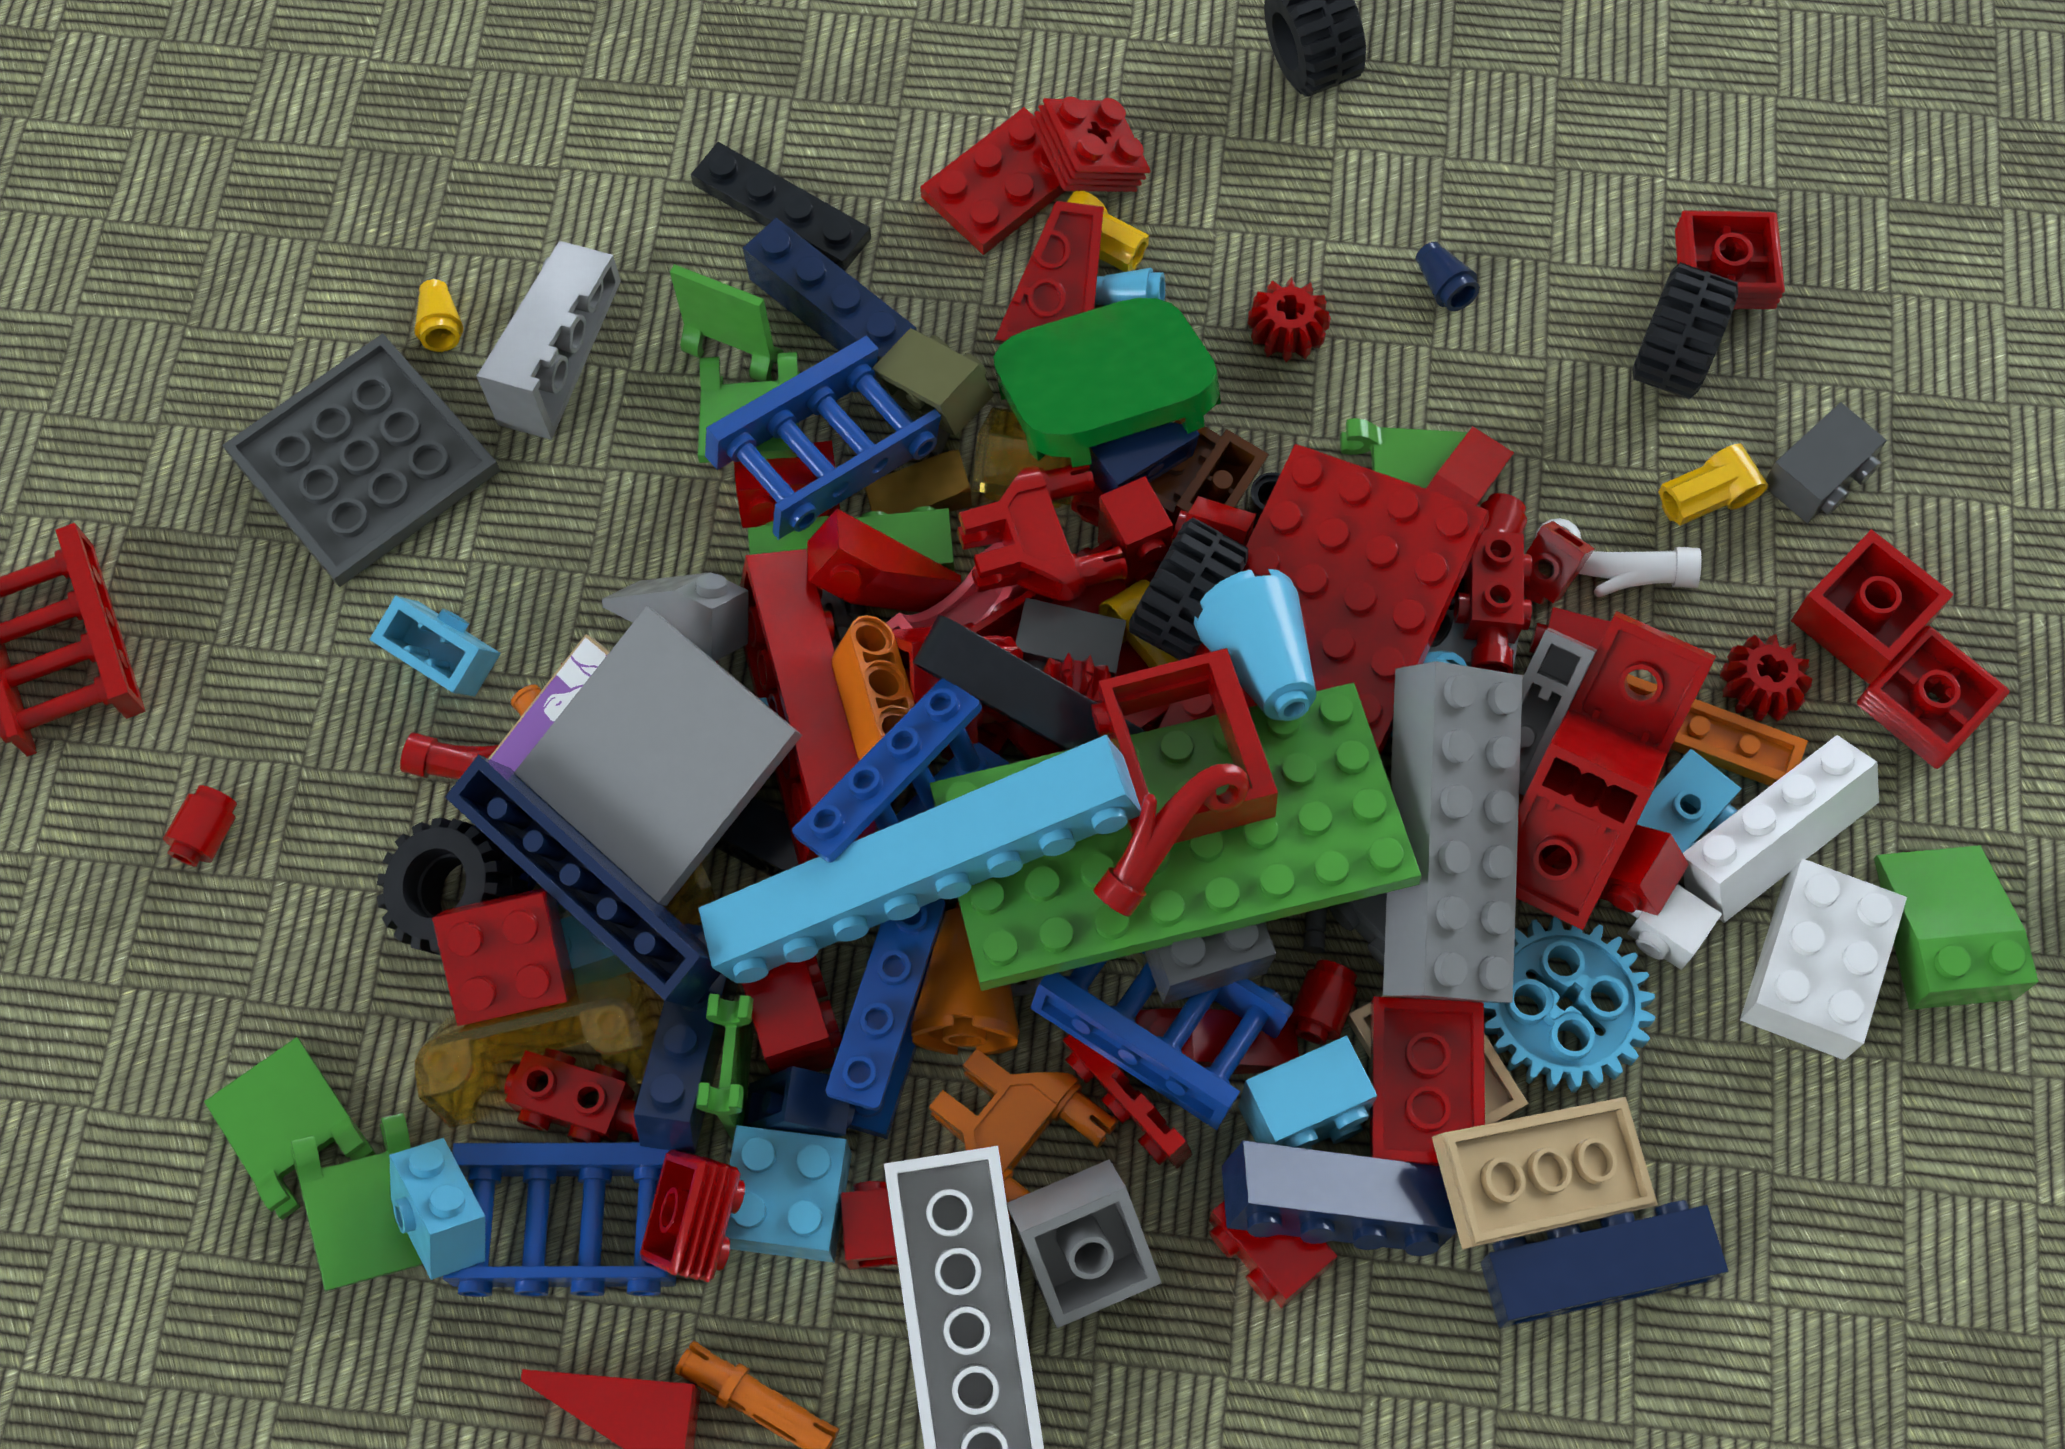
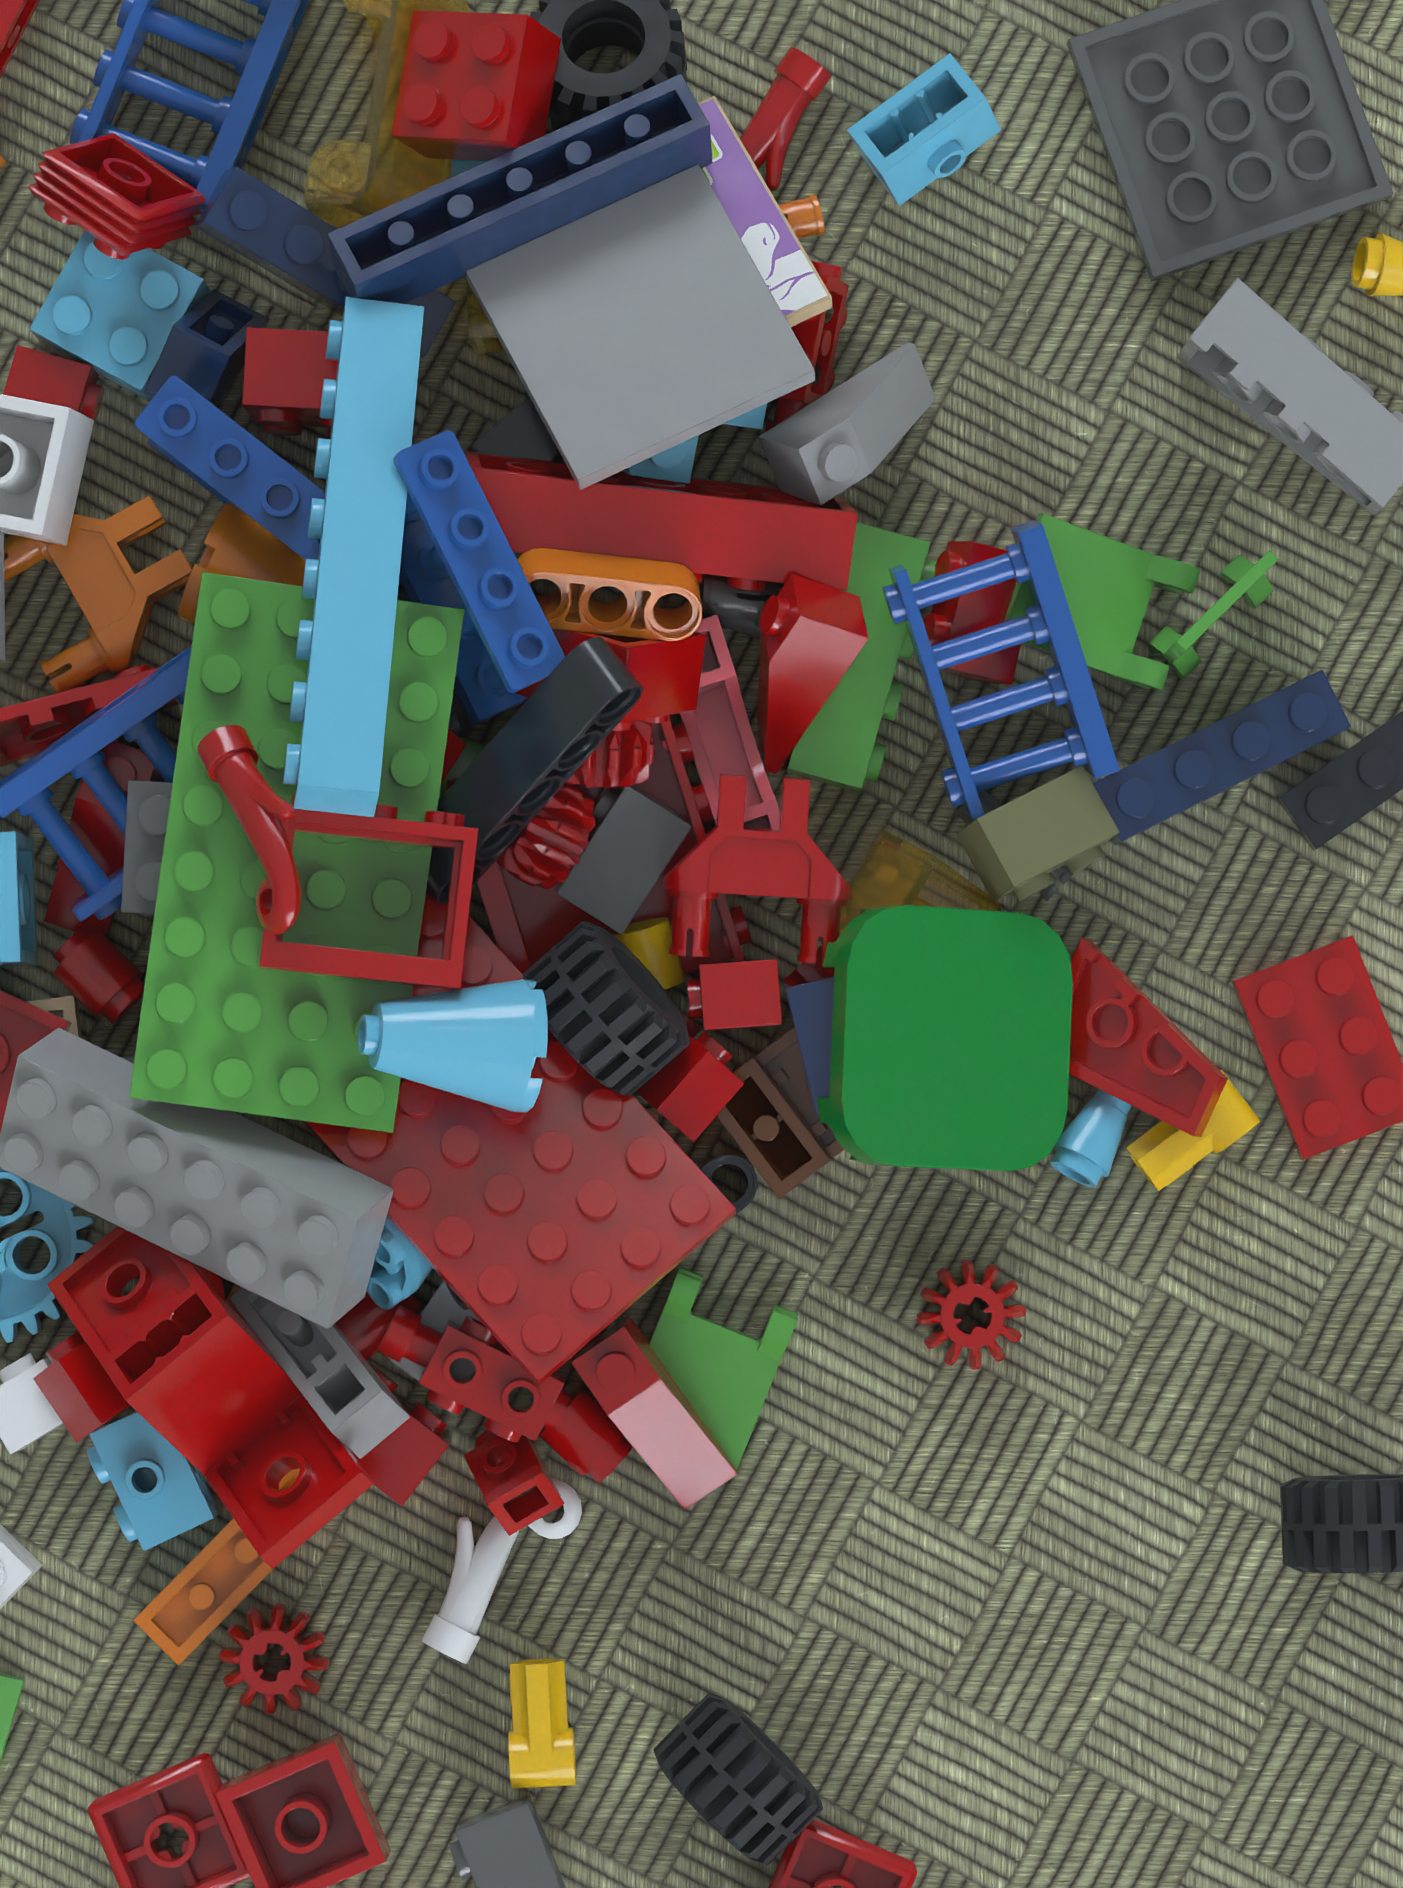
camera: 110 degrees right, 20 degrees up
(564, 1097) = (321, 110): red brick -> none
(731, 1097) = (297, 312): bright green flag -> none
(932, 483) = (915, 788): pearl gold slope -> none
(1090, 145) = (1293, 1140): red brick -> none
(1448, 278) = (957, 1540): dark blue cone -> none
(1782, 827) = (85, 1577): white brick -> none

